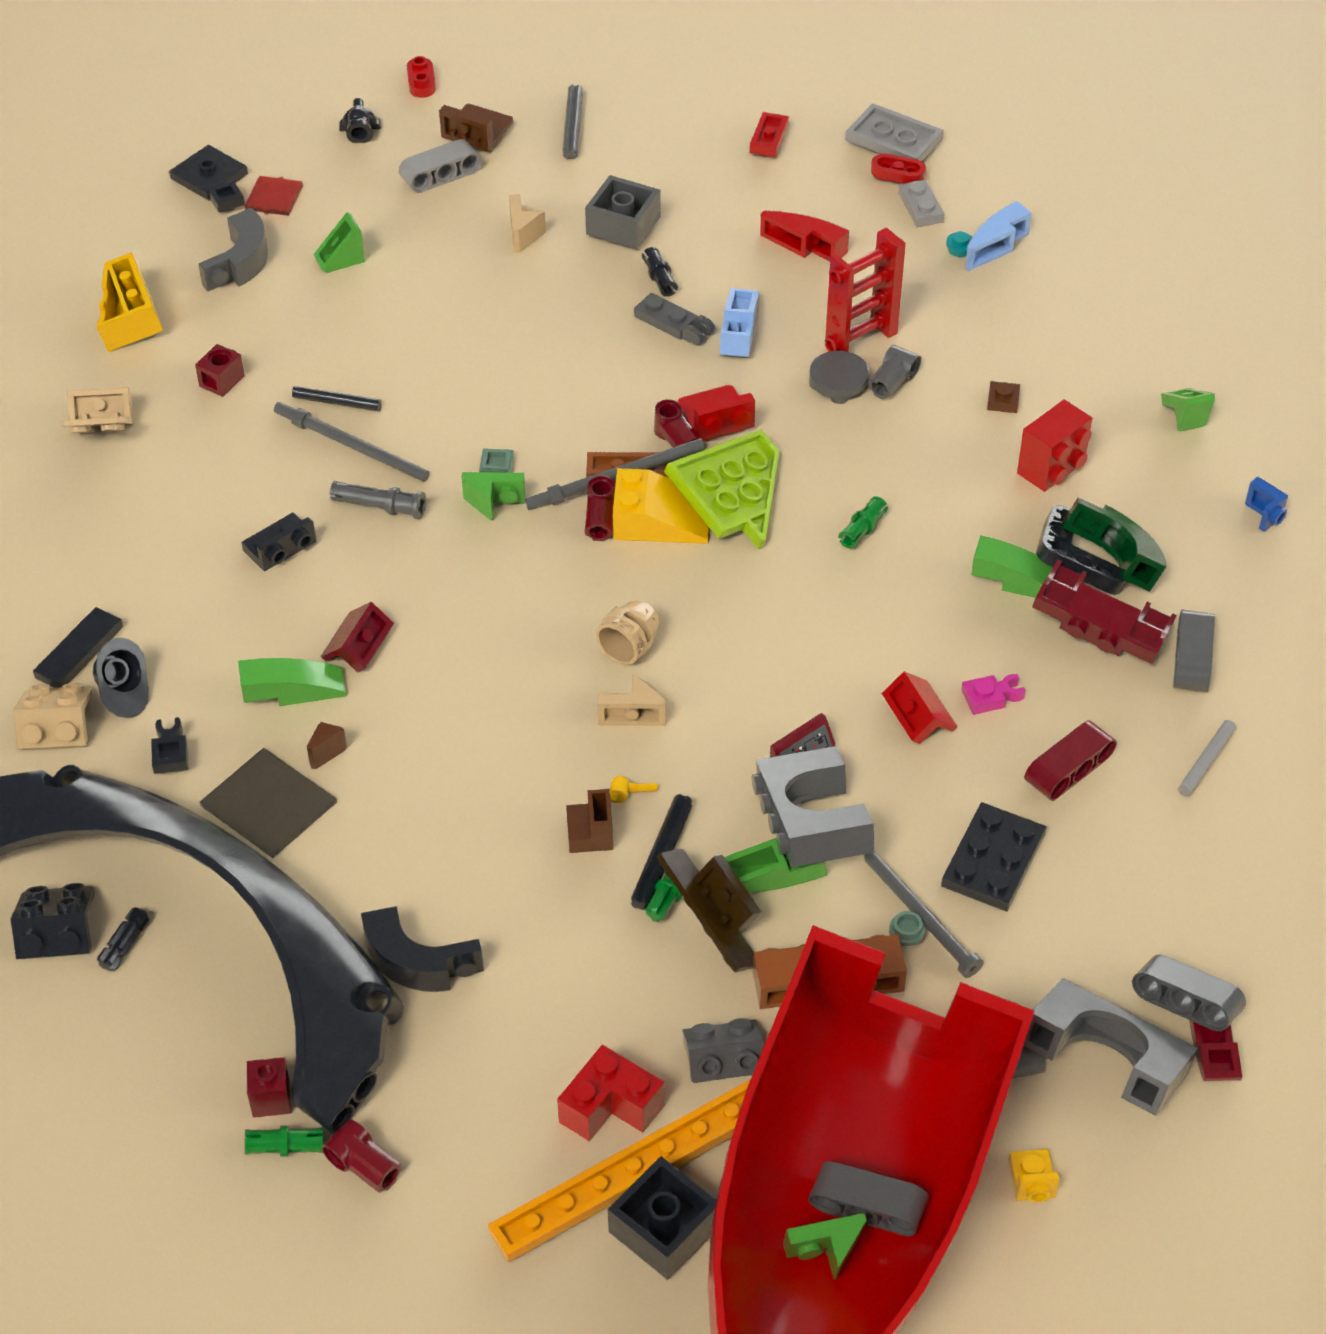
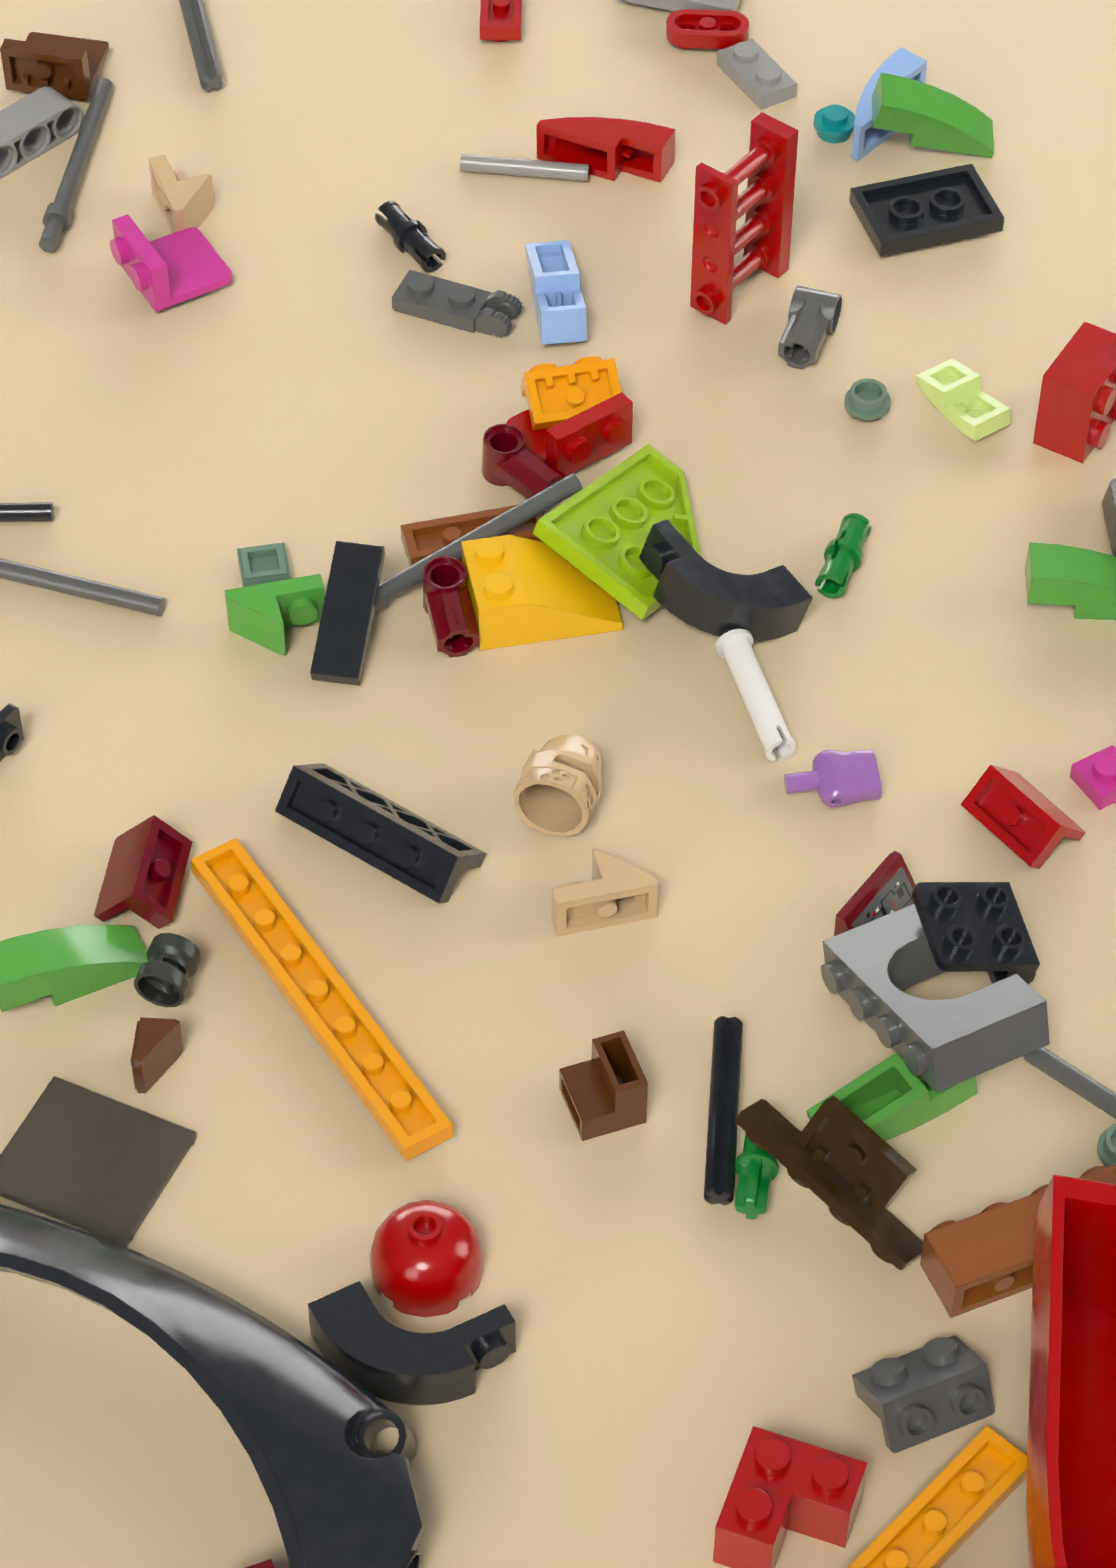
camera: 15 degrees left, 0 degrees up
(353, 694) = (166, 973): none -> pearl dark grey wheel
(391, 500) = (125, 654): dark grey pin -> none
(438, 734) = (322, 1000): none -> light orange plate
(446, 220) = (58, 212): none -> dark grey bar
(446, 902) = (426, 1258): none -> red cylinder
(503, 265) = (170, 266): none -> dark pink bracket
(508, 637) = (376, 830): none -> black fence
(534, 500) = (347, 613): none -> black tile
(621, 787) = (633, 1023): yellow hand -> none
(623, 211) = (328, 156): dark grey brick -> none
(717, 385) = (568, 390): none -> light orange bracket
(748, 239) = (524, 167): none -> light grey bar
(772, 538) = (718, 600): none -> black arch
(775, 598) = (764, 712): none -> white pin
(808, 661) = (839, 777): none -> medium lavender piece
(839, 375) = (730, 345): dark grey tile -> none
(854, 772) = (976, 928): none -> black bracket
(915, 426) = (867, 400): none -> sand green plate
(978, 438) = (959, 398): none -> yellowish green slope
(999, 309) = (926, 209): none -> black plate
(1003, 397) = (976, 335): reddish brown plate -> none
(1022, 250) = (931, 117): none -> bright green slope

